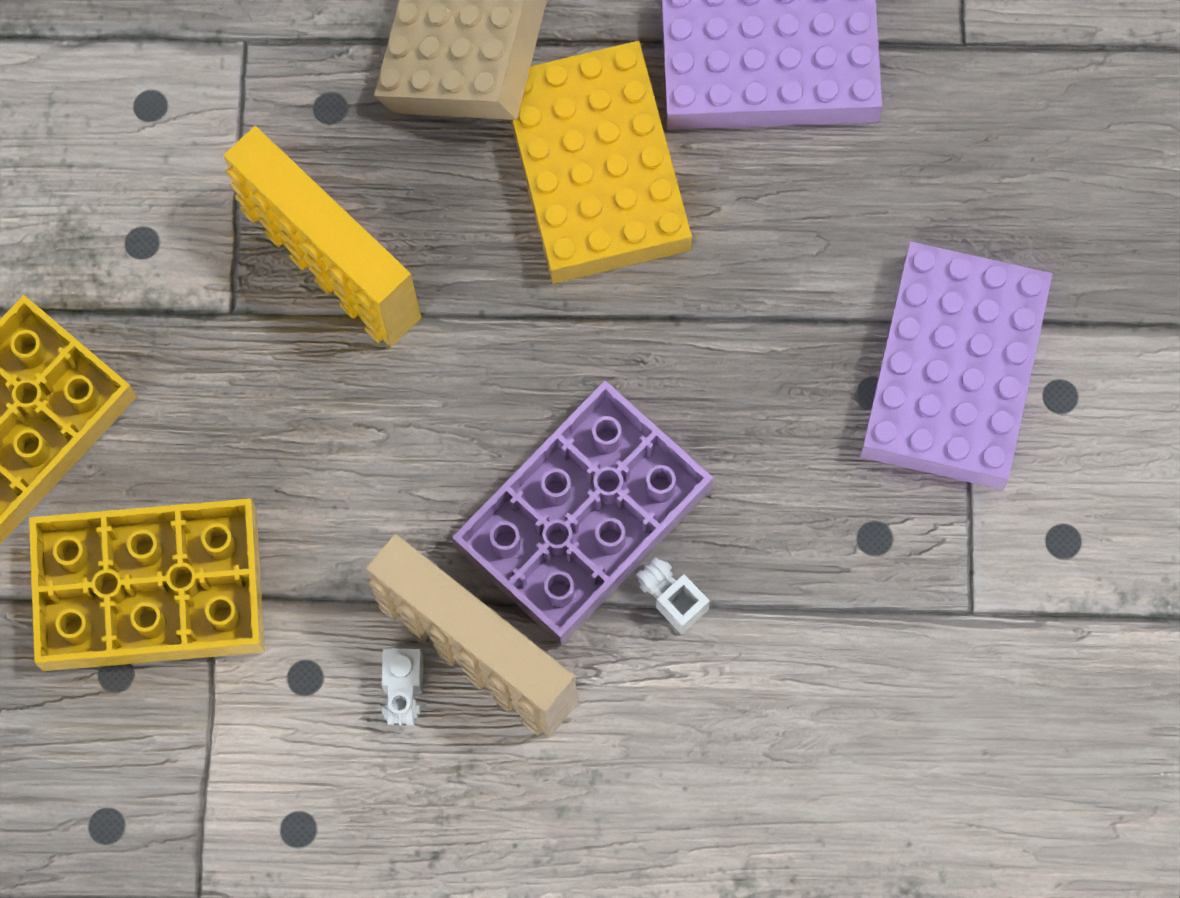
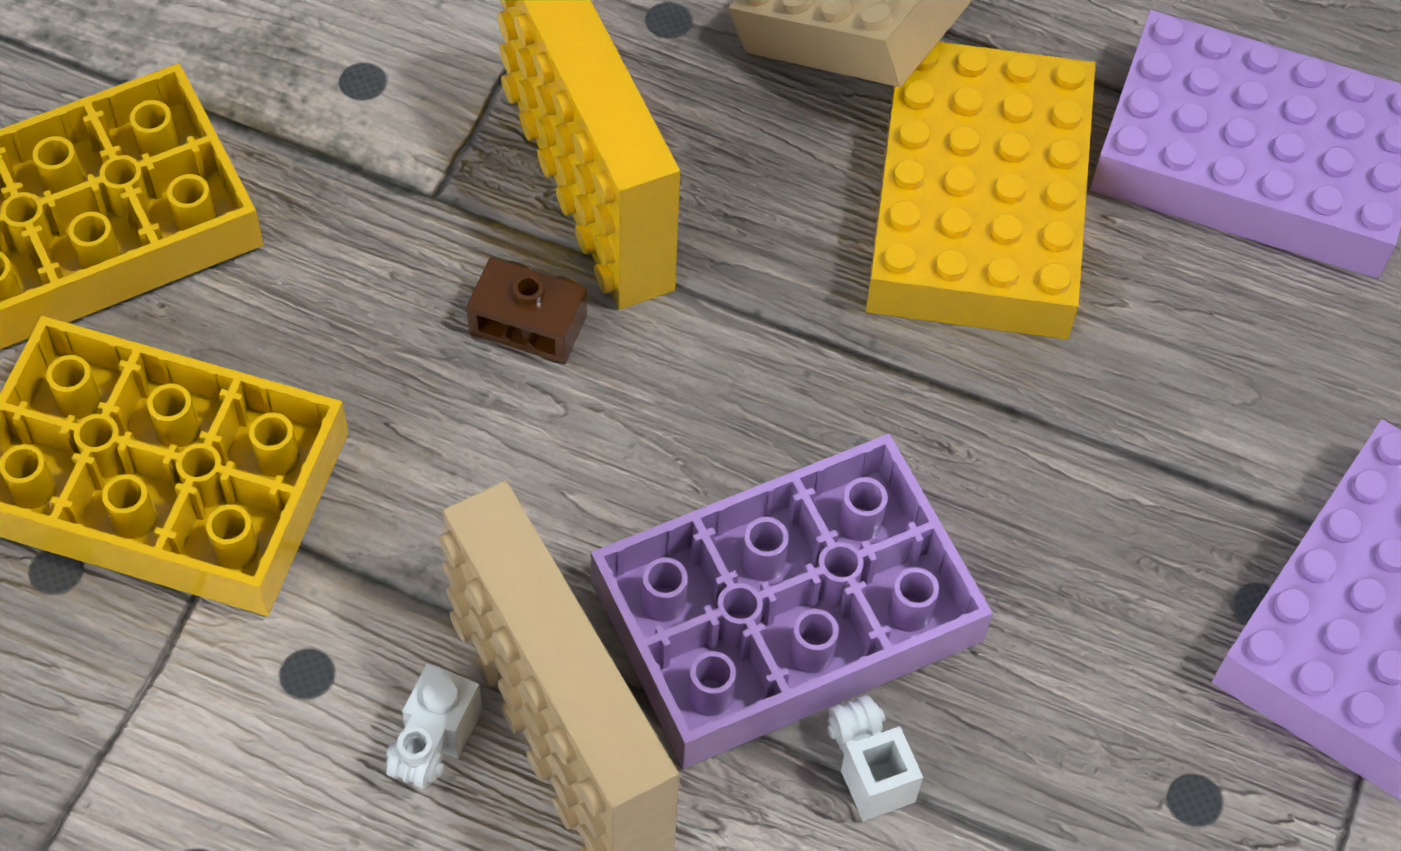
camera: 15 degrees right, 15 degrees down
(334, 376) = (527, 310): none -> reddish brown brick

